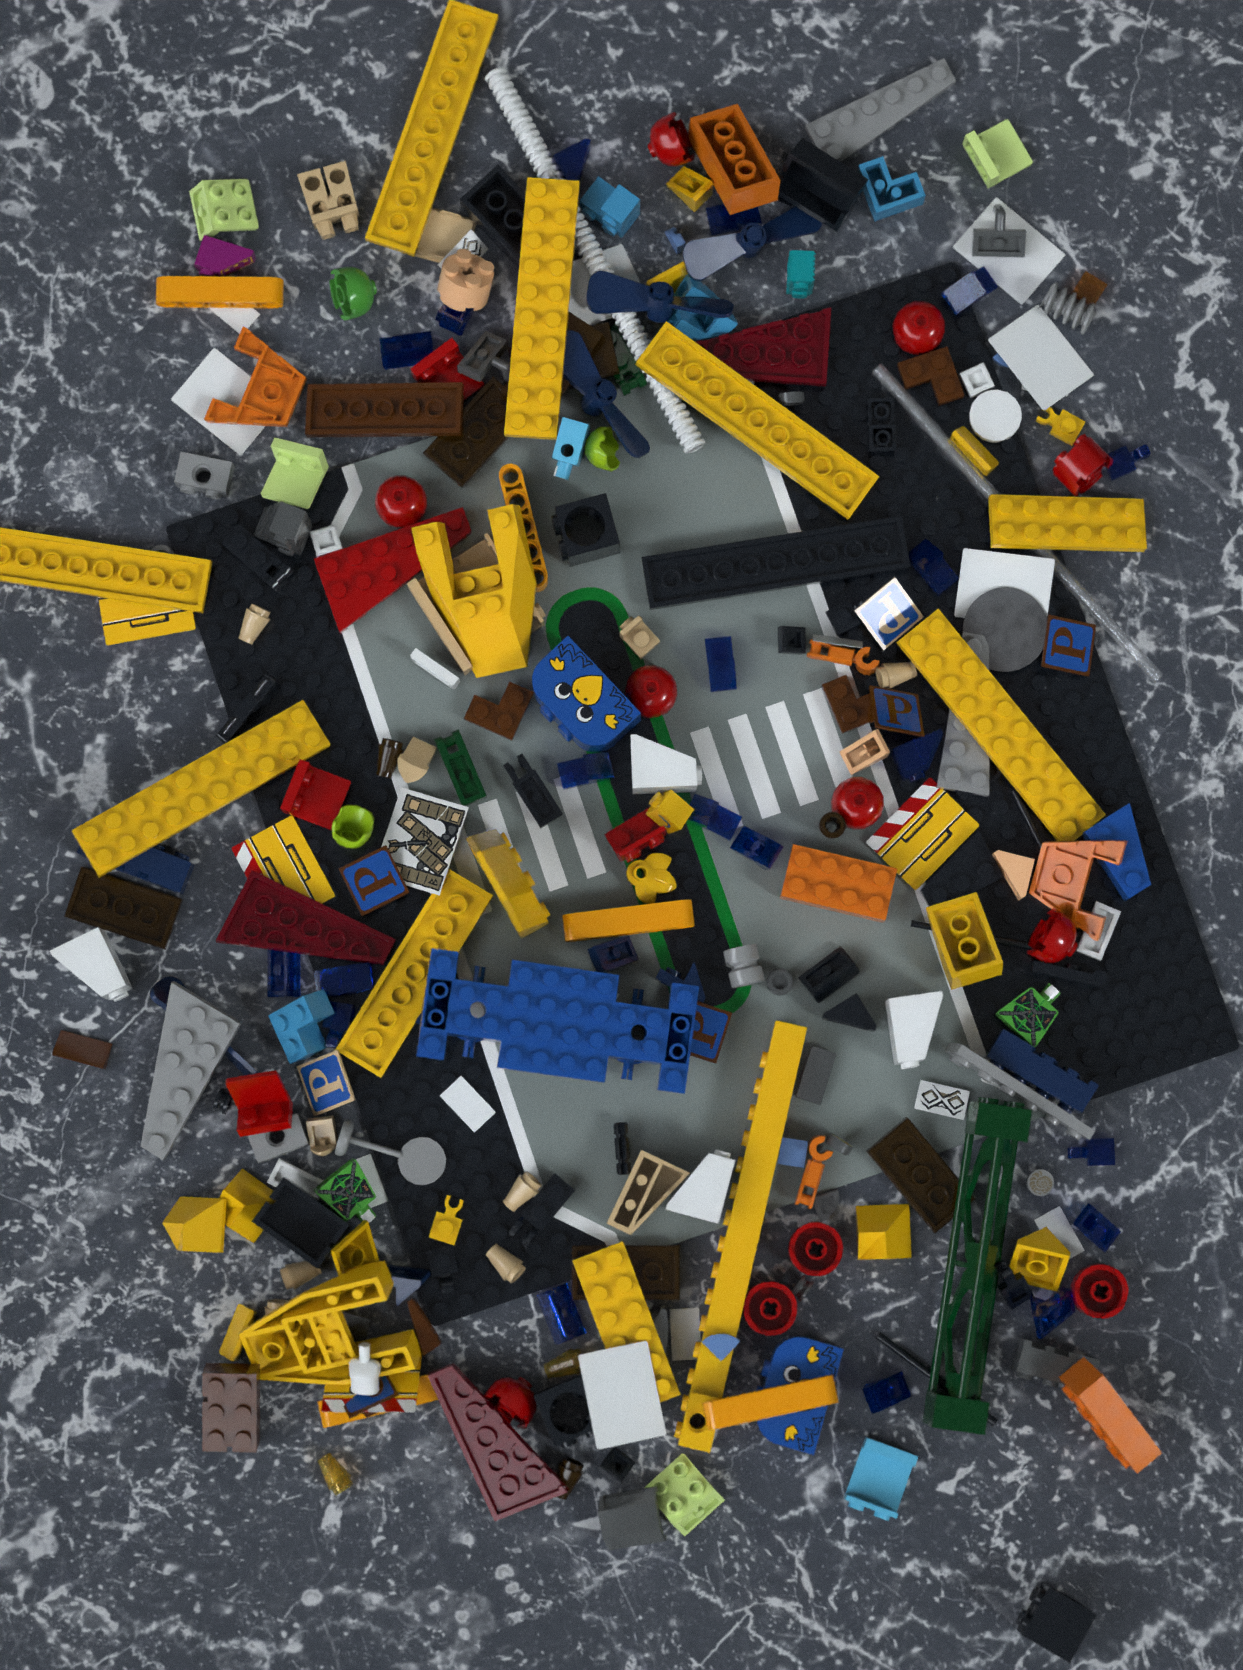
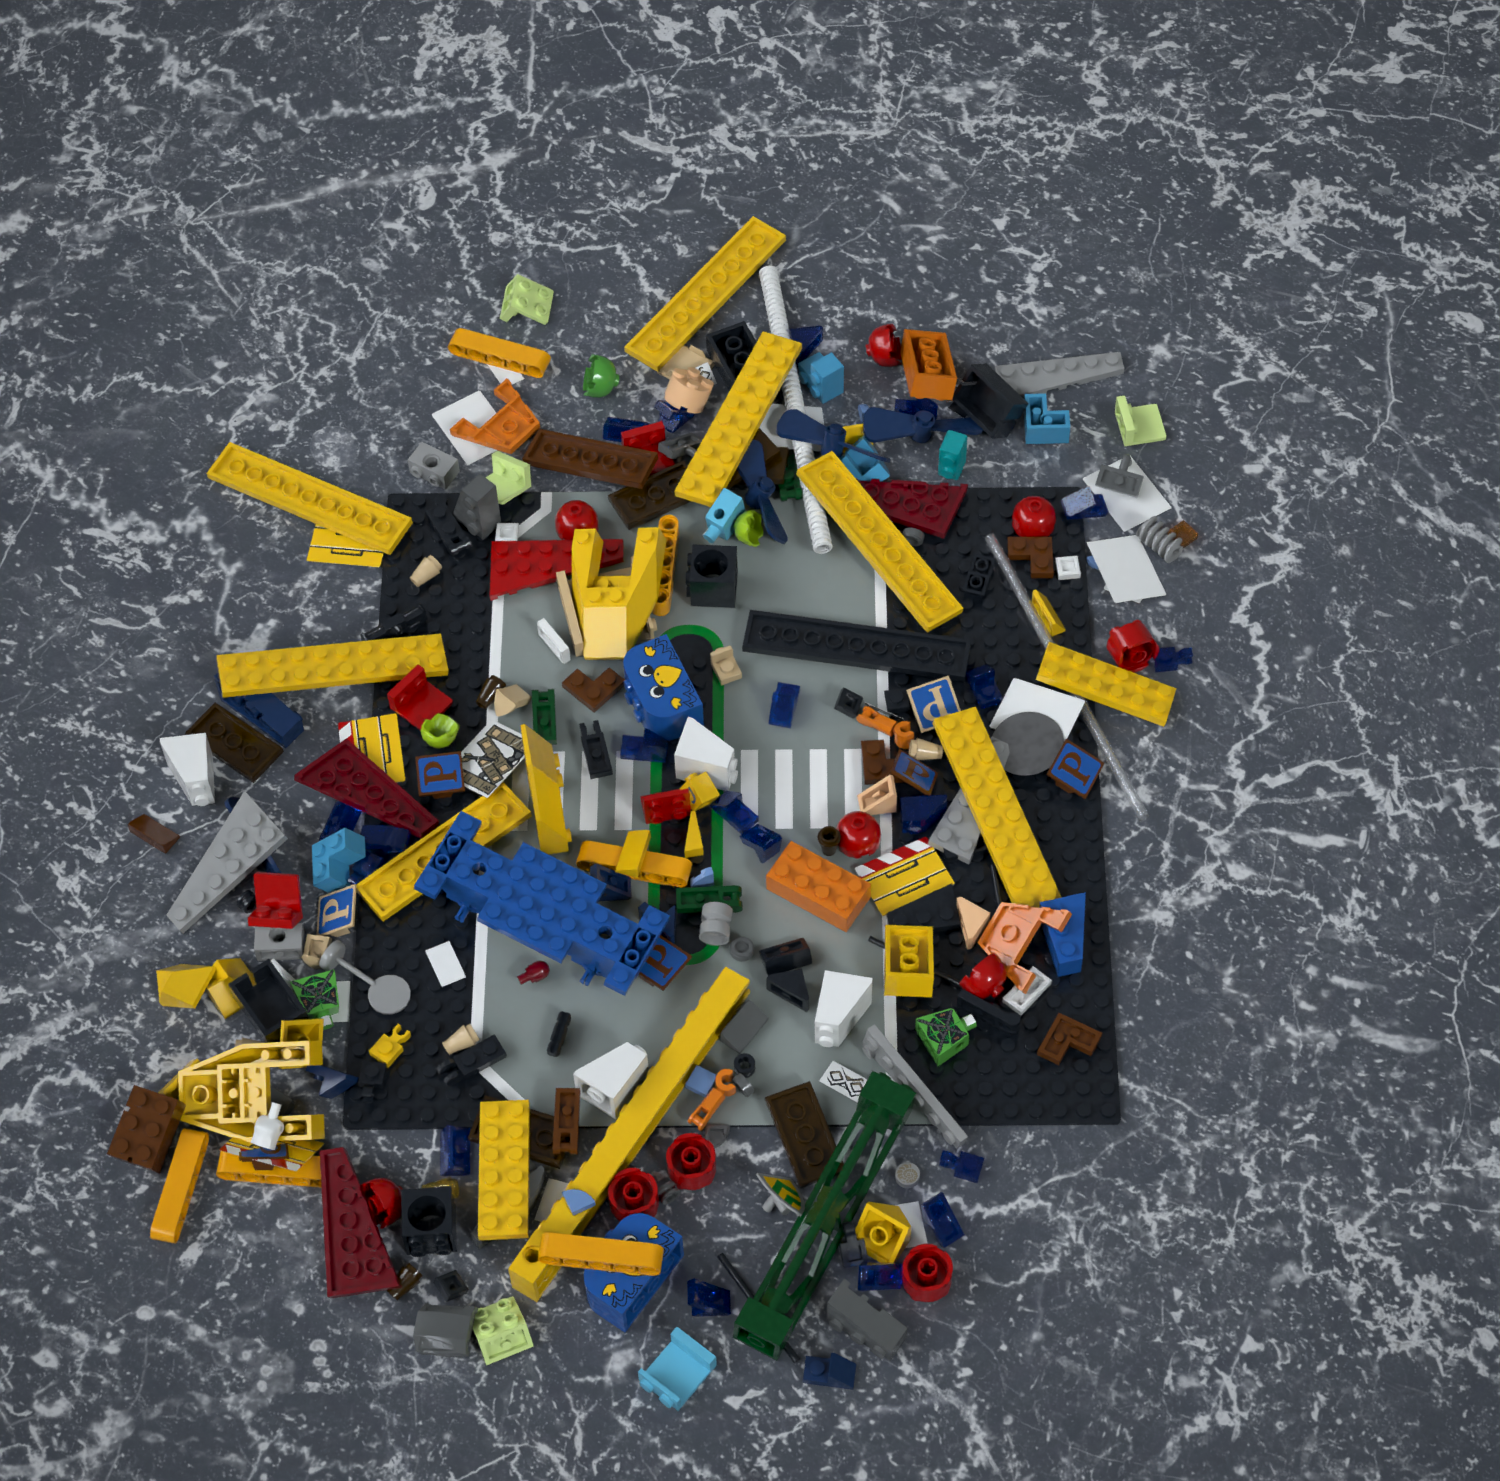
camera: 20 degrees right, 25 degrees down
(221, 258) = (512, 329): magenta slope -> none
(289, 1452) = (179, 1186): none -> light orange beam
(333, 207) = (609, 323): tan hips -> none
(335, 1475) = (209, 1216): clear yellow cone -> none
(425, 1332) = (334, 1131): reddish brown slope -> none
(505, 1263) = (424, 1091): tan cone -> none
(568, 1087) = (535, 972): none -> dark red cylinder
(622, 1395) = (476, 1214): white sticker -> none
(626, 915) = (633, 852): none -> yellow slope
(644, 1191) = (557, 1067): tan wedge -> none
(651, 690) = (721, 706): red cylinder -> none
(655, 877) = (670, 840): yellow plate -> none
(671, 1250) = (566, 1120): none -> reddish brown plate
(682, 869) = (693, 841): none -> yellow piece
(691, 187) = (890, 384): yellow slope -> none
(710, 912) = (705, 879): none -> medium blue tile
(723, 936) = (693, 898): none -> dark green plate
(837, 1113) = (741, 1059): none -> black bush
(883, 1231) = (746, 1164): yellow slope -> none
(925, 1252) = (783, 1194): none -> shield
(995, 416) = (1073, 595): white tile -> none
(1033, 1426) = (830, 1372): none -> dark blue slope
(1041, 1072) = (939, 1077): dark blue wedge -> none
(1064, 426) = (1124, 617): yellow plate -> none
(1109, 1416) = (898, 1369): orange brick -> none
(1154, 971) = (1067, 1033): none -> reddish brown plate

